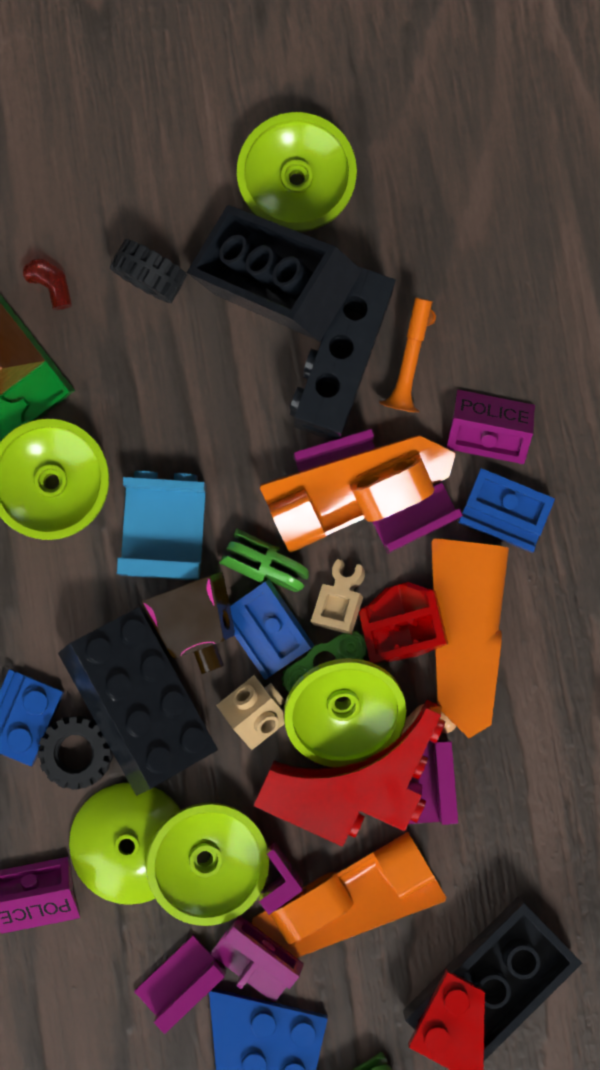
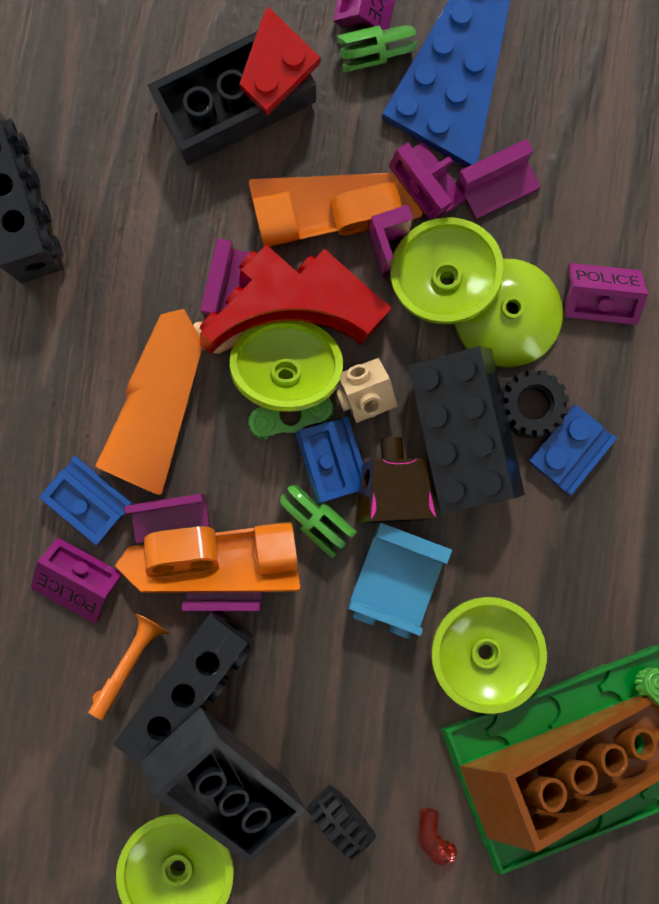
camera: 170 degrees left, 0 degrees up
(339, 604) = (262, 462): tan plate -> none
(402, 623) = (210, 428): red slope -> none

